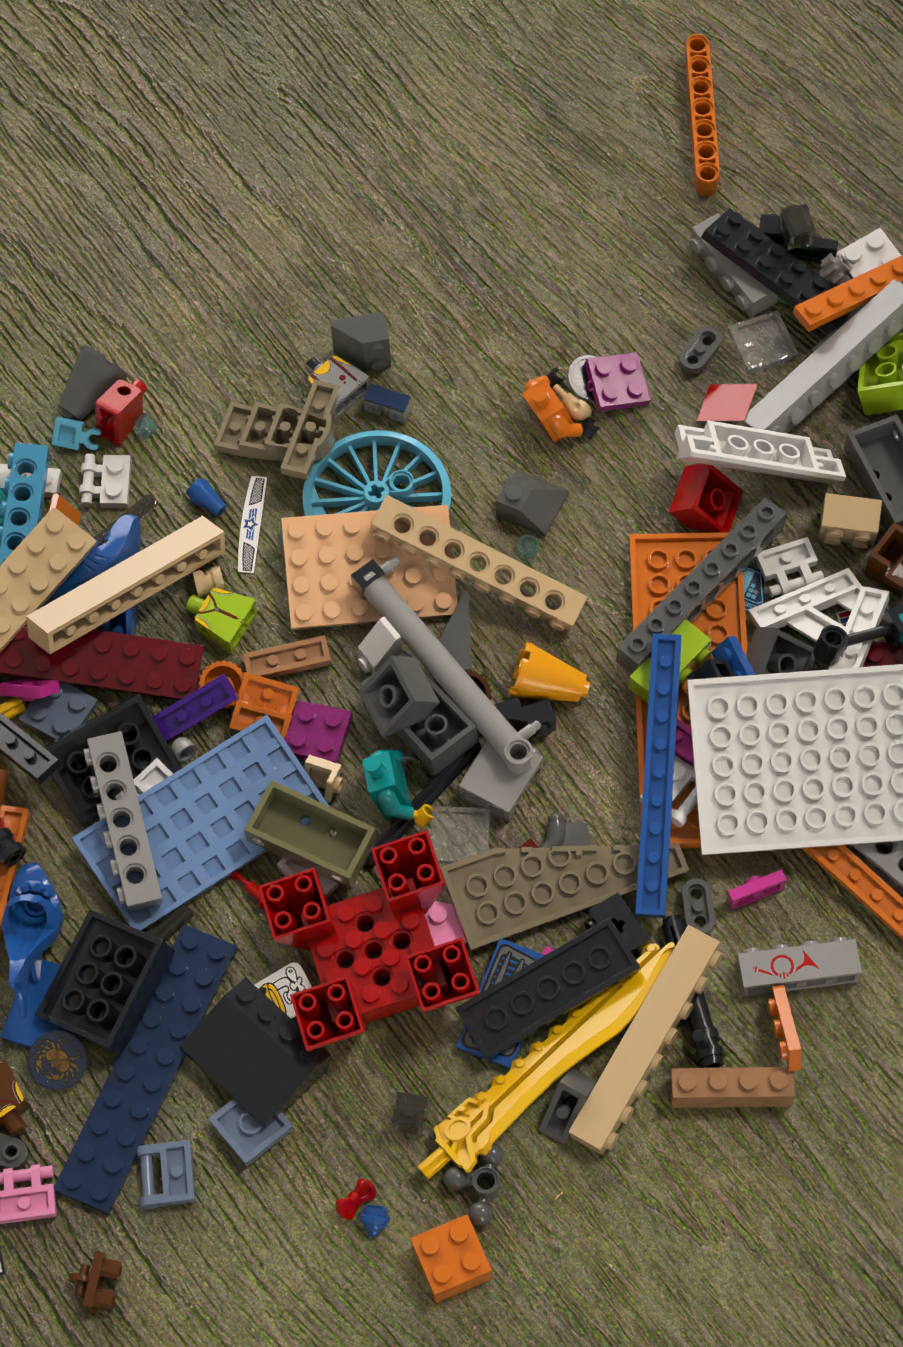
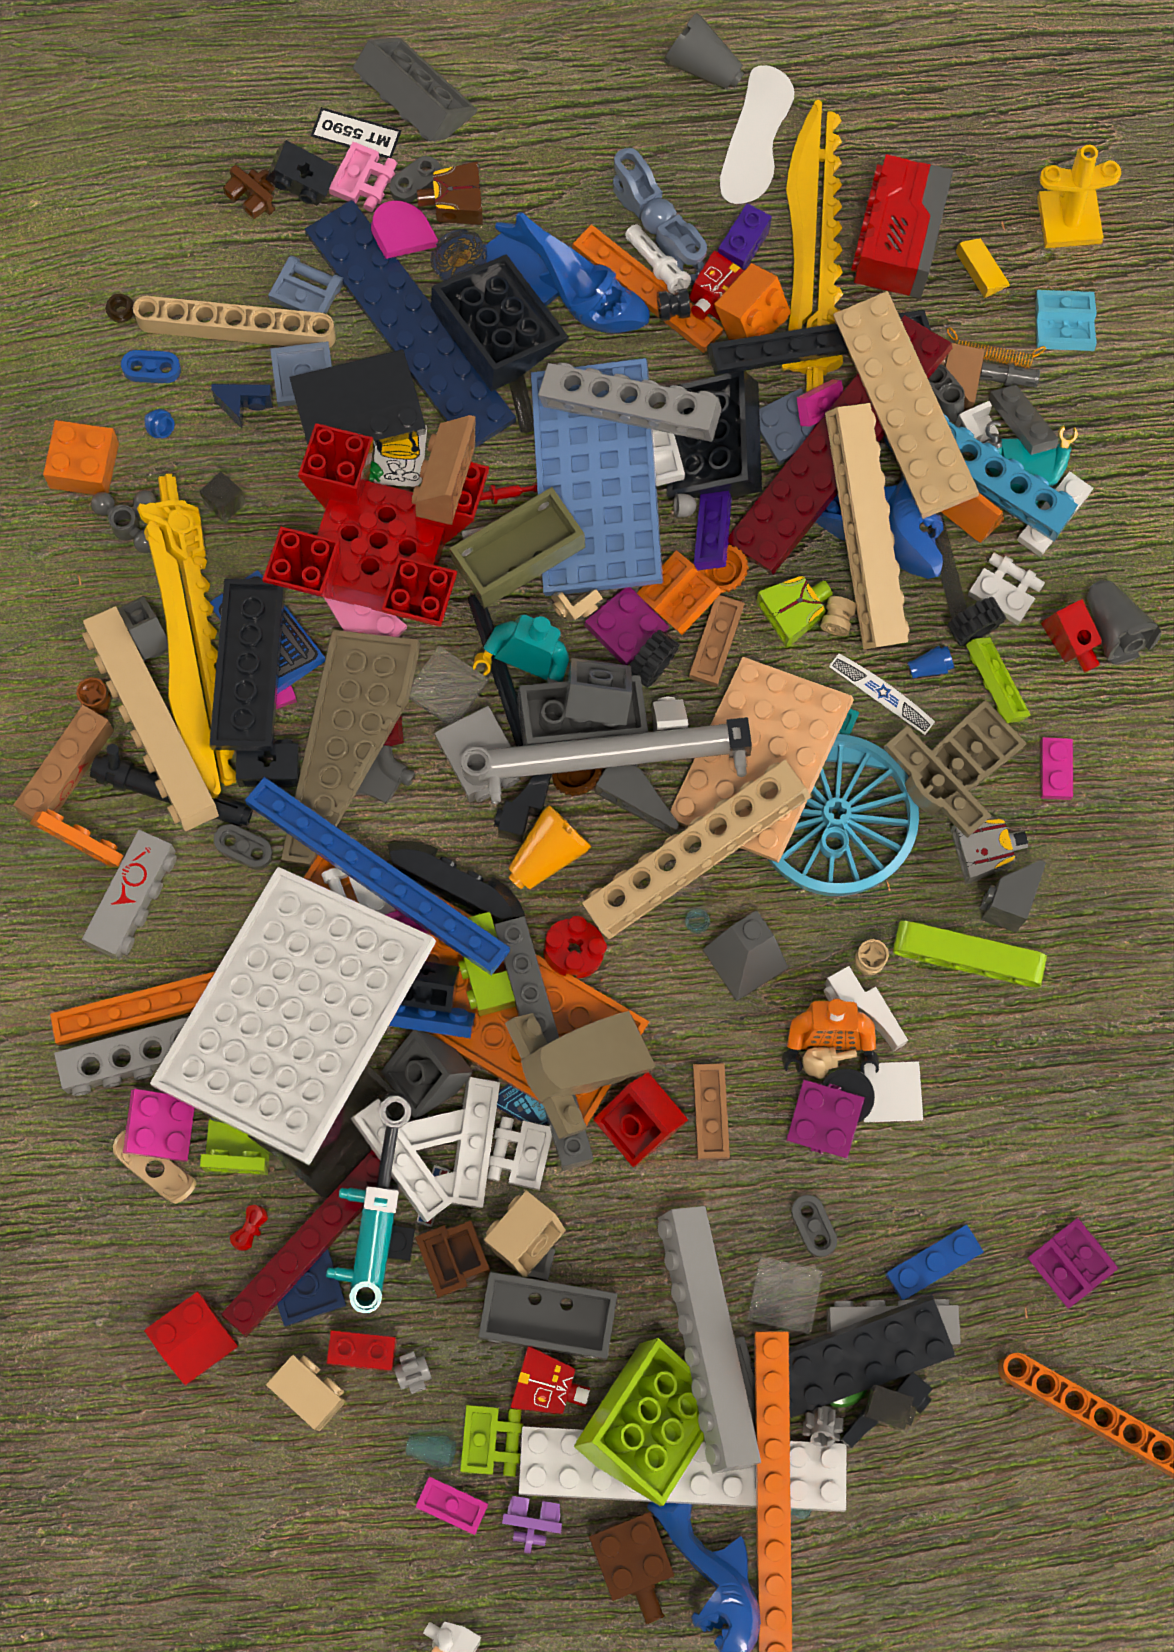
camera: 115 degrees right, 10 degrees up
(56, 1241) = (315, 173): none -> black brick
(59, 1125) = (401, 229): none -> dark pink tile
(70, 434) = (1072, 582): medium azure plate -> none
(145, 425) = (1046, 654): clear light blue hinge -> none
(153, 477) = (976, 621): none -> black tyre
(191, 445) = (997, 680): none -> lime plate
(236, 374) = (1056, 768): none -> dark pink plate
(239, 1226) = (224, 313): none -> tan beam
(283, 1318) = (117, 301): none -> dark brown plate
(290, 897) = (445, 470): none -> medium nougat slope
(312, 1164) = (235, 397): none -> dark blue slope
(325, 1261) = (152, 365): none -> blue plate
(336, 688) = (654, 657): none -> black tyre
(363, 1192) = (181, 408): red piece -> none
(380, 397) = (933, 885): dark blue piece -> none
(426, 355) = (970, 954): none -> lime beam
(476, 410) = (873, 951): none -> tan wheel
(512, 415) = (846, 987): none -> white slope
(560, 353) = (896, 1092): none -> white sticker
(599, 606) = (579, 932): none -> red plate
(606, 184) = (1073, 1262): none -> magenta slope
(613, 702) = (441, 875): none -> black brick
(654, 1099) = (91, 690): none -> dark orange wheel
(655, 465) = (711, 1111): none -> medium nougat plate
(669, 266) = (934, 1262): none -> blue plate
(704, 540) = (577, 1063): none -> dark tan slope
(727, 402) = (736, 1211): sticker -> none
(756, 889) = (225, 906): dark pink plate -> none
(758, 452) = (646, 1187): white slope -> none

